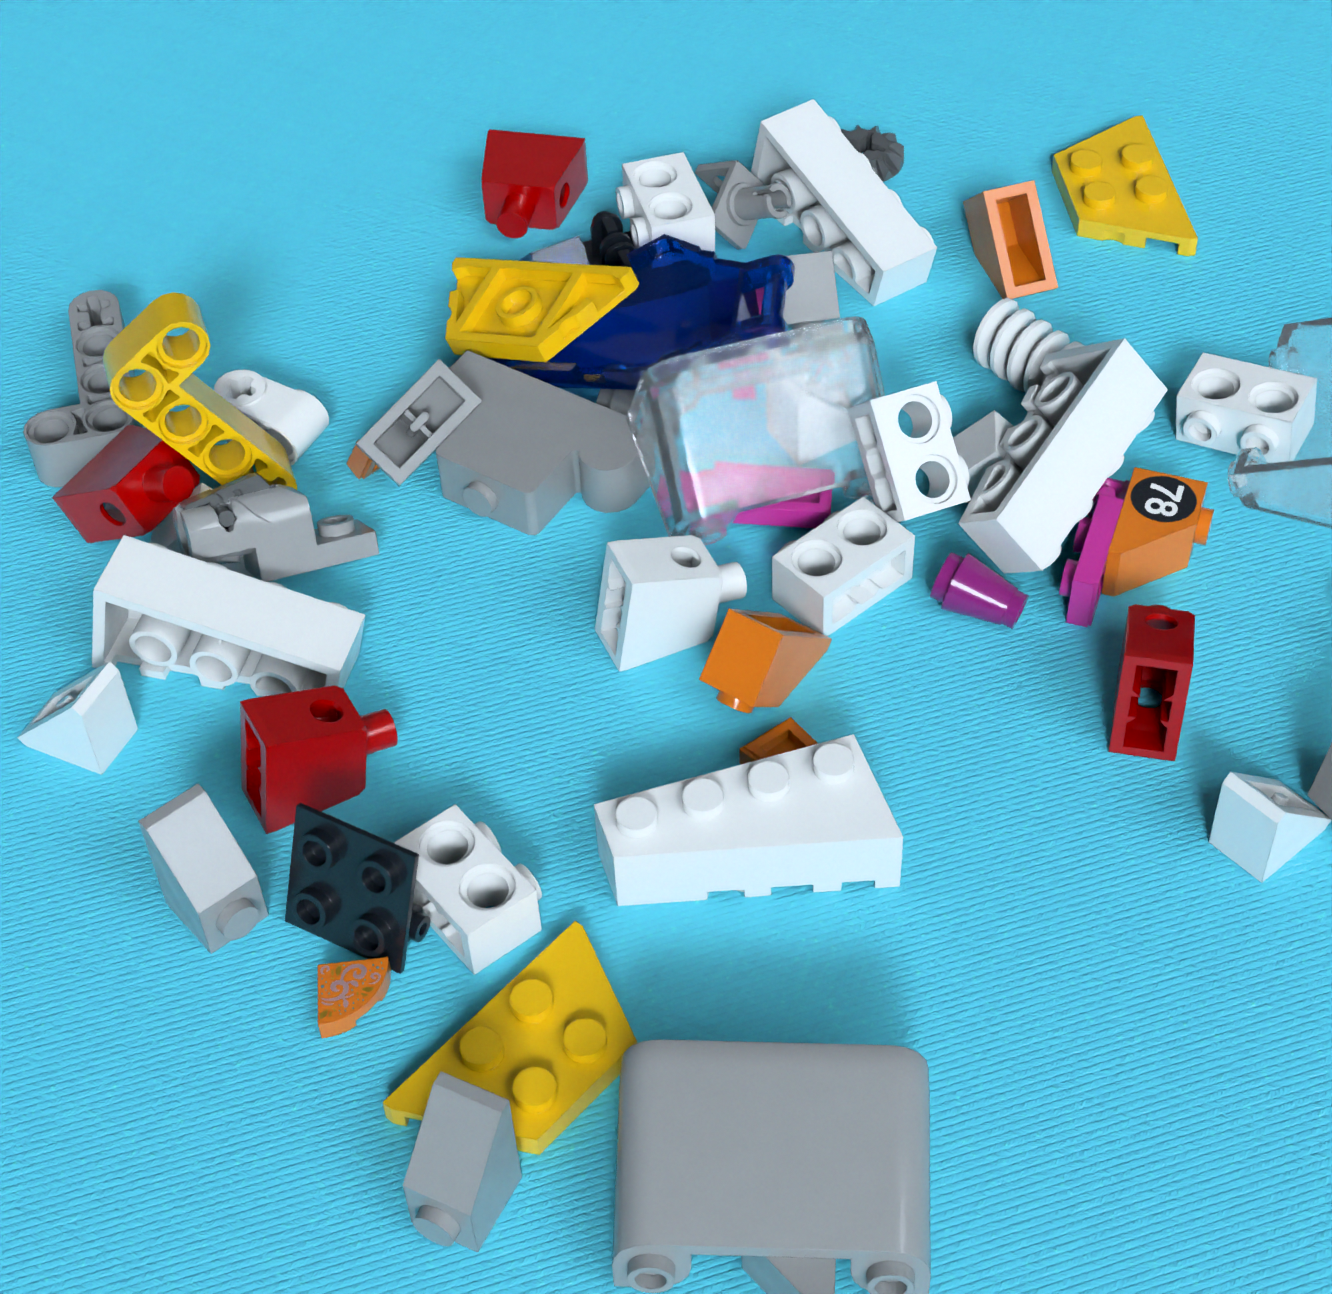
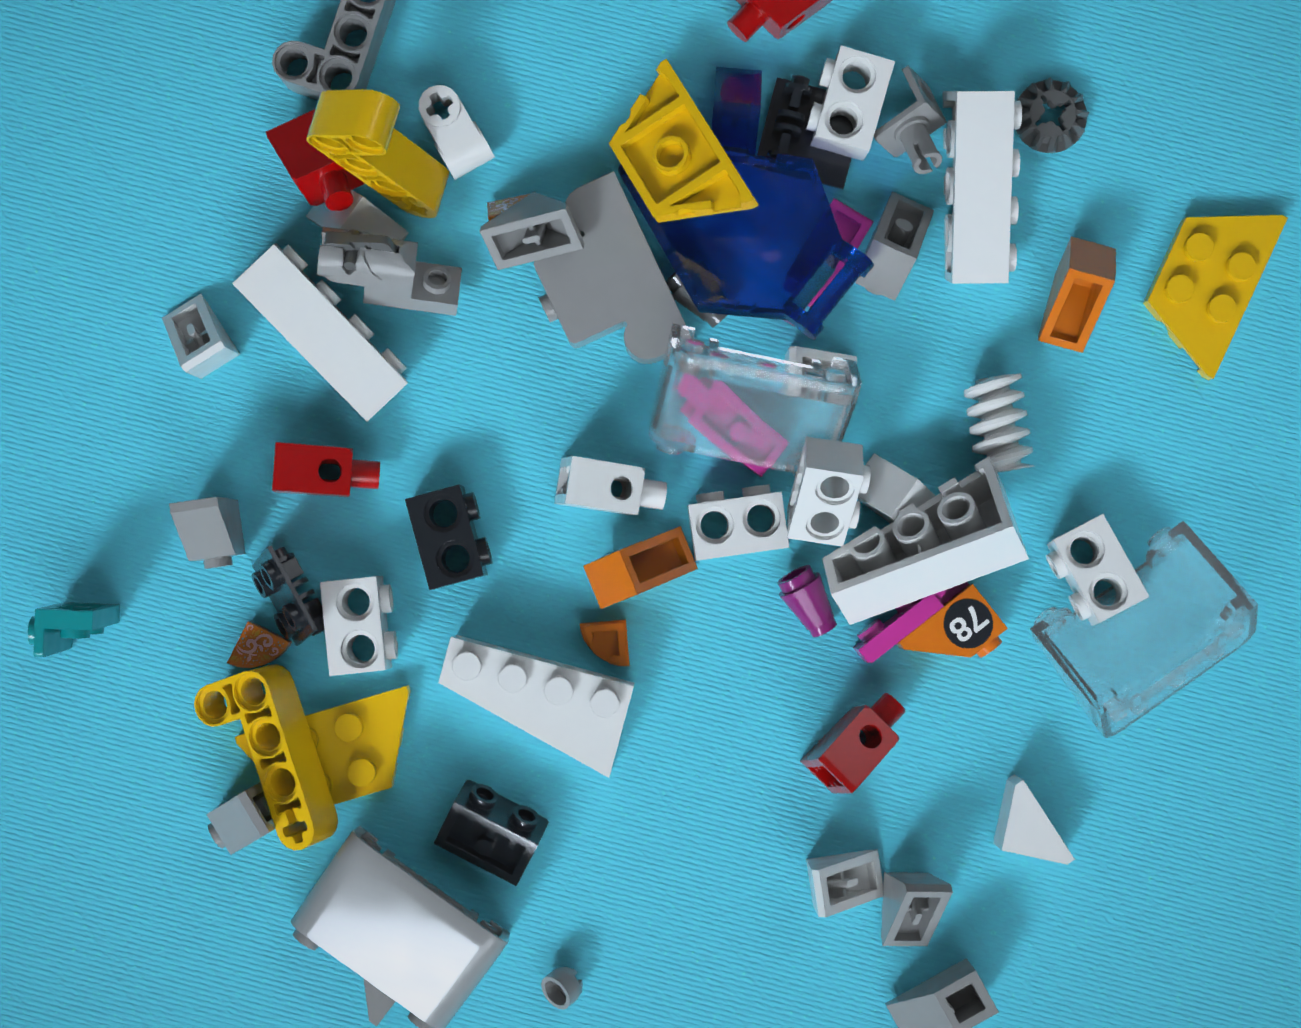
camera: 30 degrees right, 40 degrees up
(71, 1060) = (60, 623): none -> teal bracket
(465, 1052) = (301, 811): none -> yellow beam
(516, 745) = (435, 540): none -> black brick
(823, 1006) = (491, 831): none -> black bracket
(1026, 1134) = (562, 987): none -> light grey hinge

